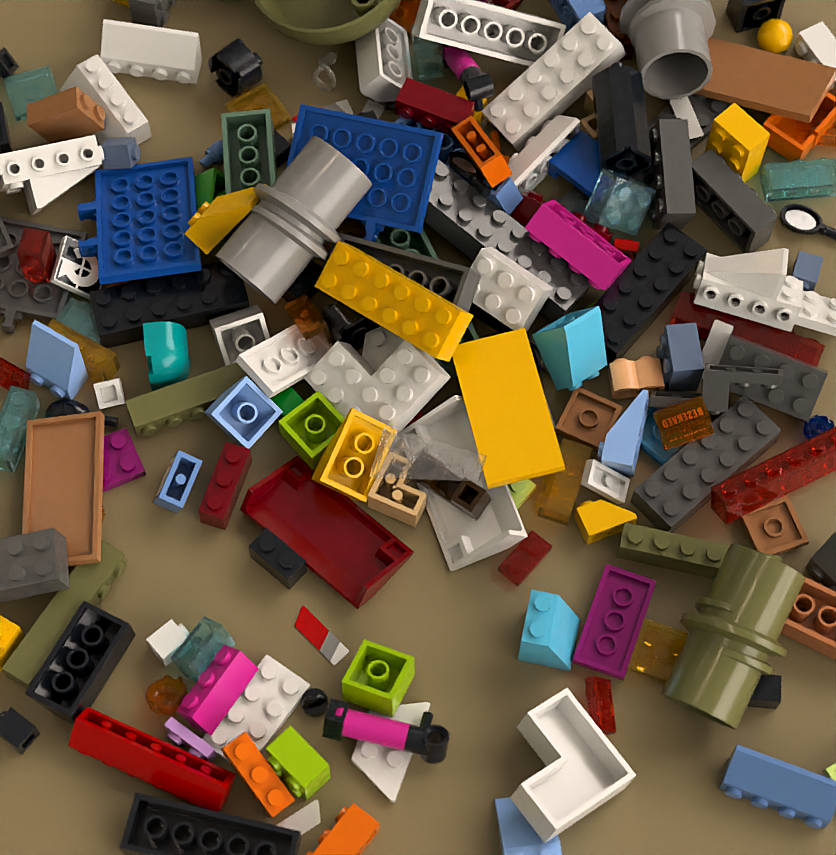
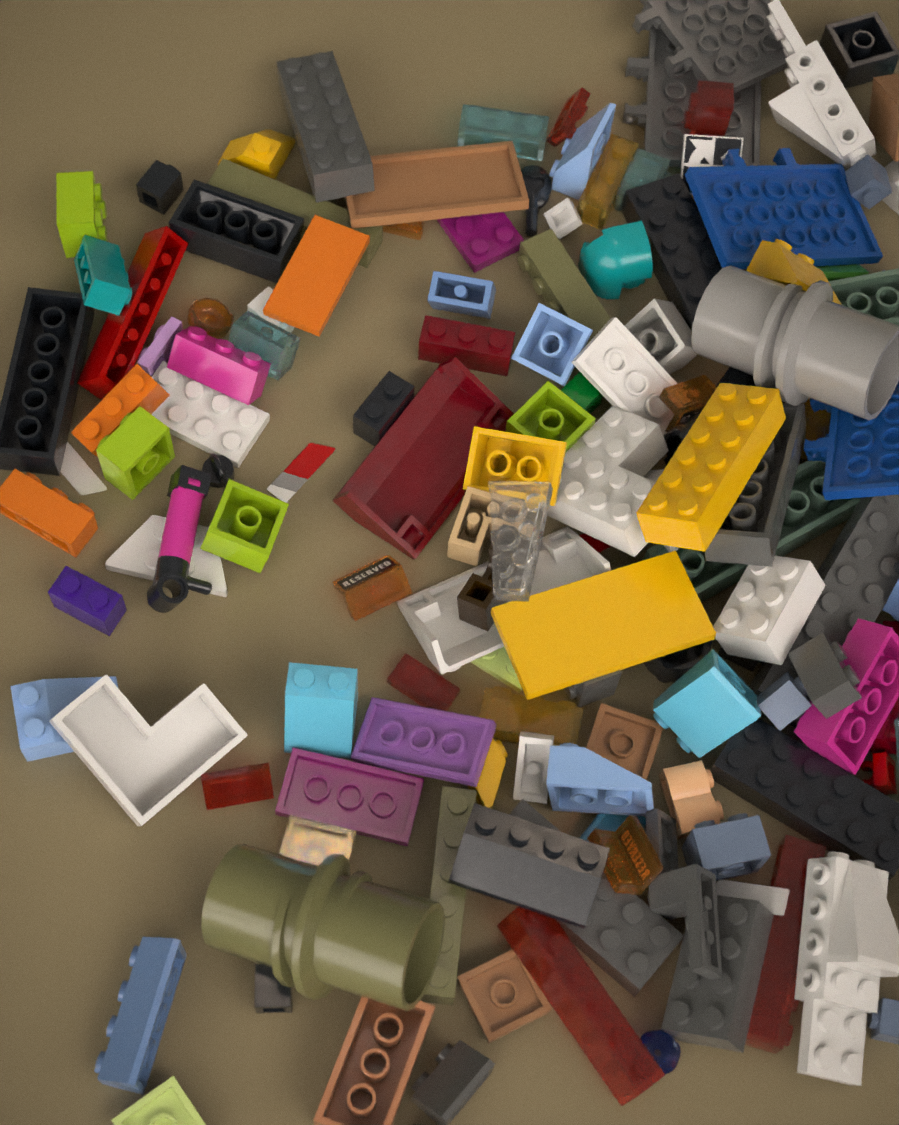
camera: 80 degrees right, 0 degrees up
(41, 800) = (79, 209): none -> lime brick
(116, 780) = (102, 275): none -> teal brick
(144, 595) = (316, 275): none -> orange tile
(428, 815) = (87, 600): none -> dark purple brick
(435, 586) = (373, 587): none -> clear orange panel
(570, 257) = (825, 675): none -> dark grey brick
(579, 291) = (784, 700): none -> sand blue brick
(580, 555) = (424, 741): none -> medium lavender tile
(695, 486) = (529, 865): none -> slope

